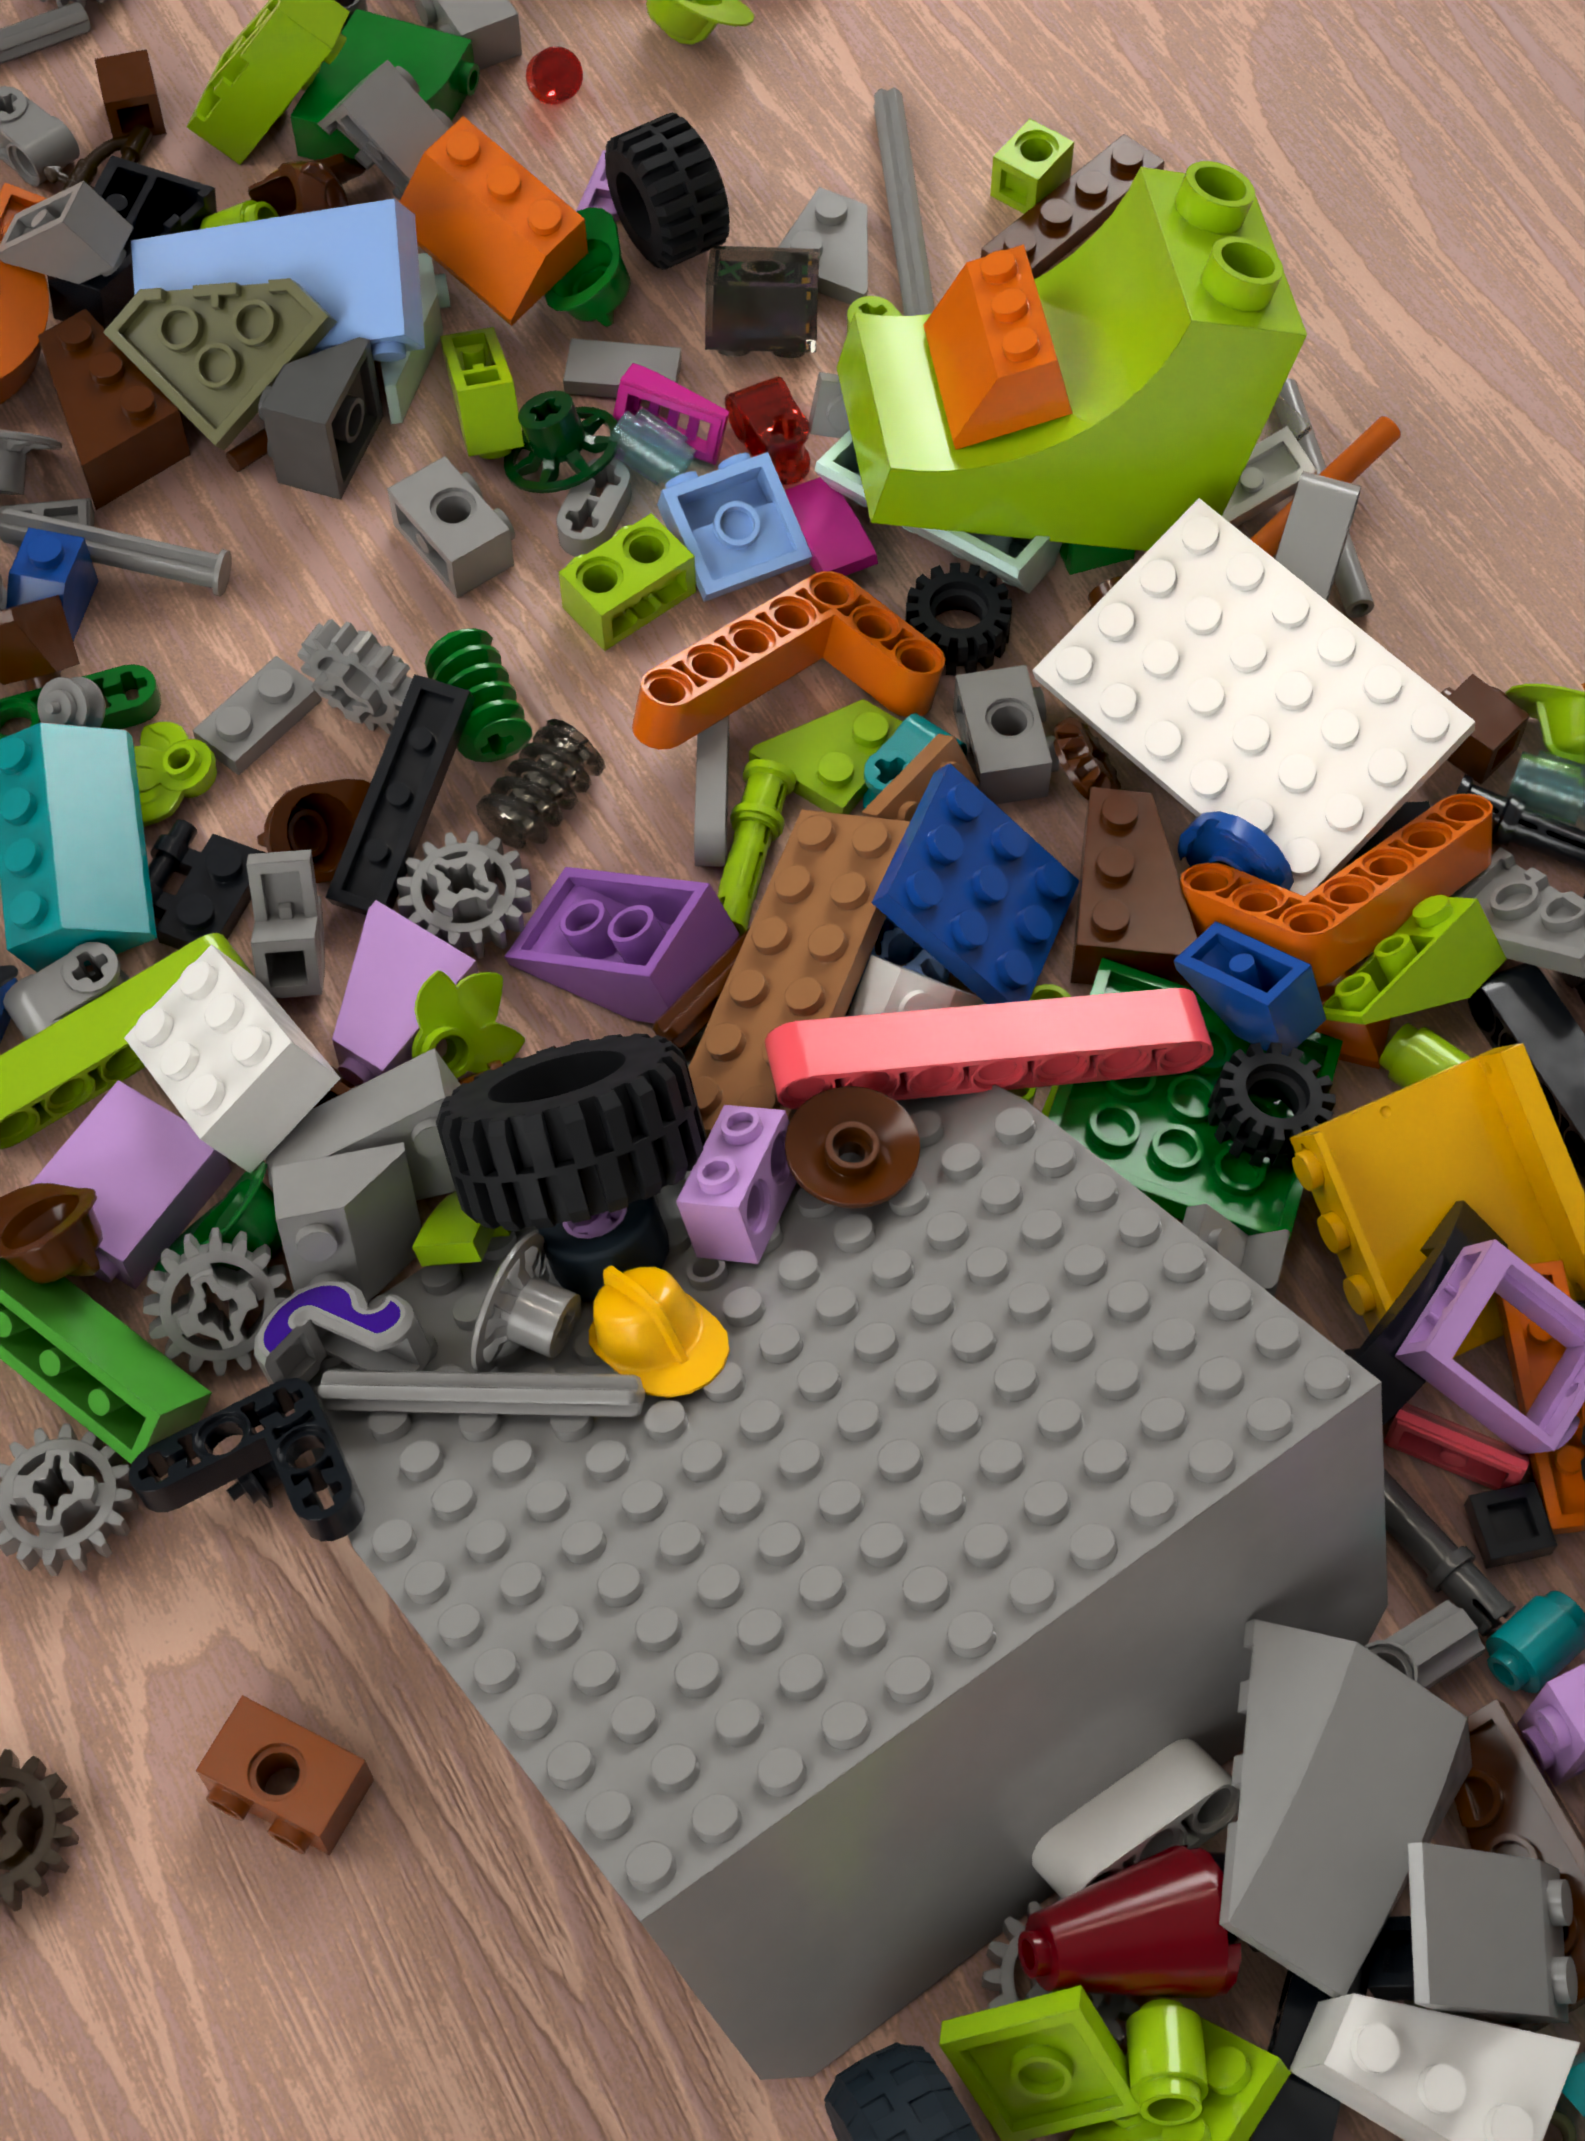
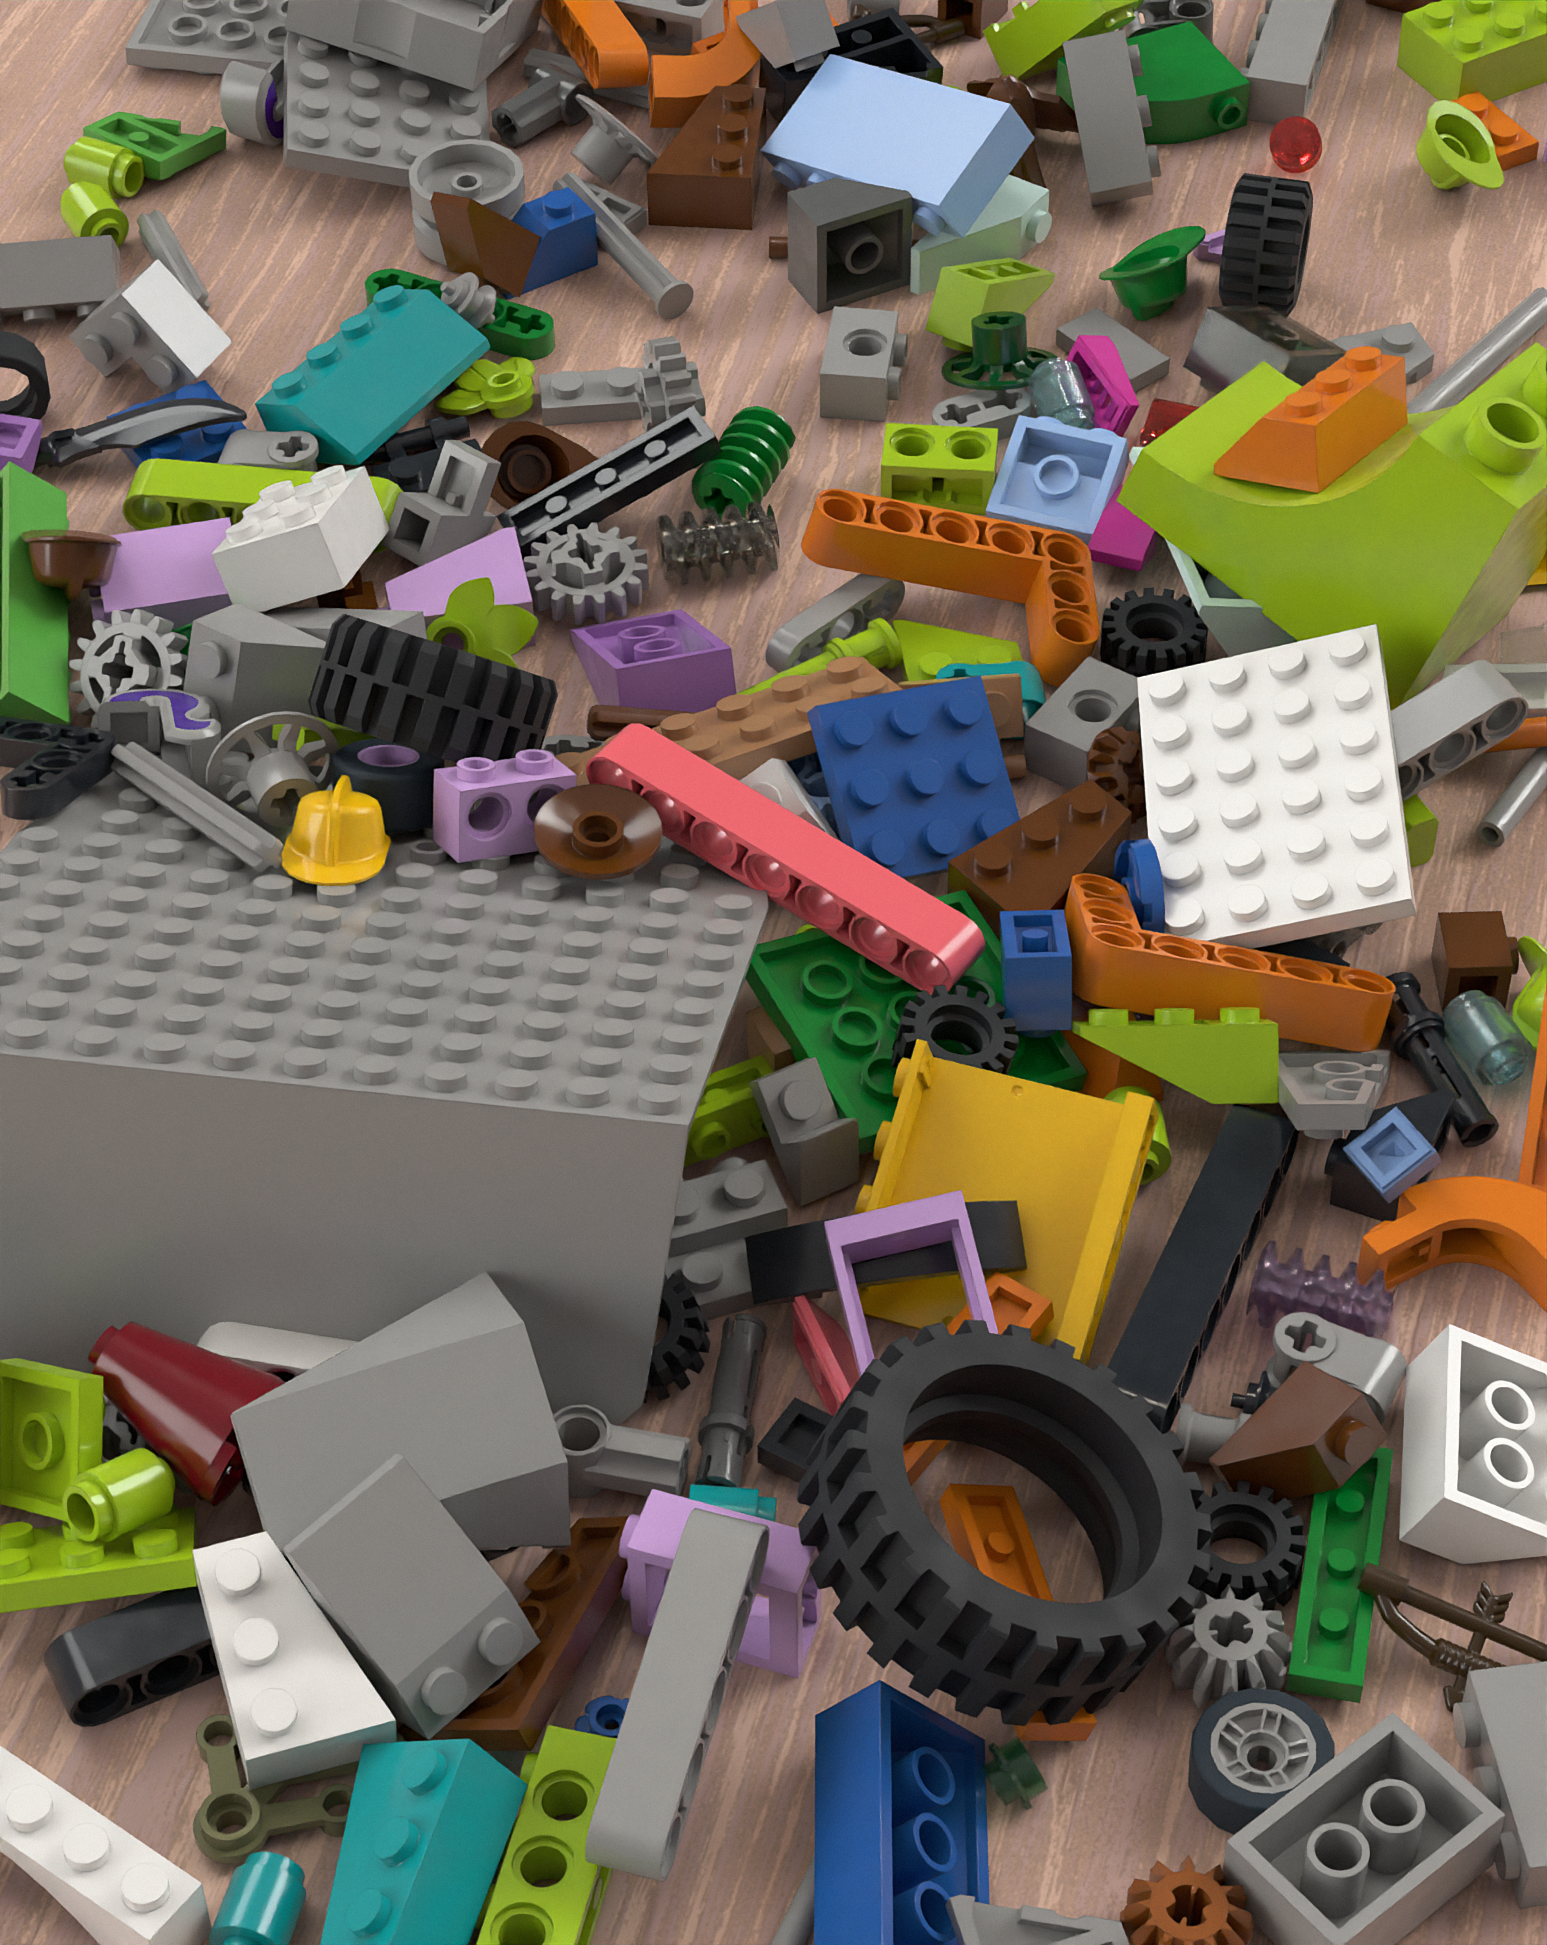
camera: 45 degrees right, 15 degrees down
(219, 346) = (811, 140): olive plate -> none
(492, 221) = (1100, 185): orange slope -> none

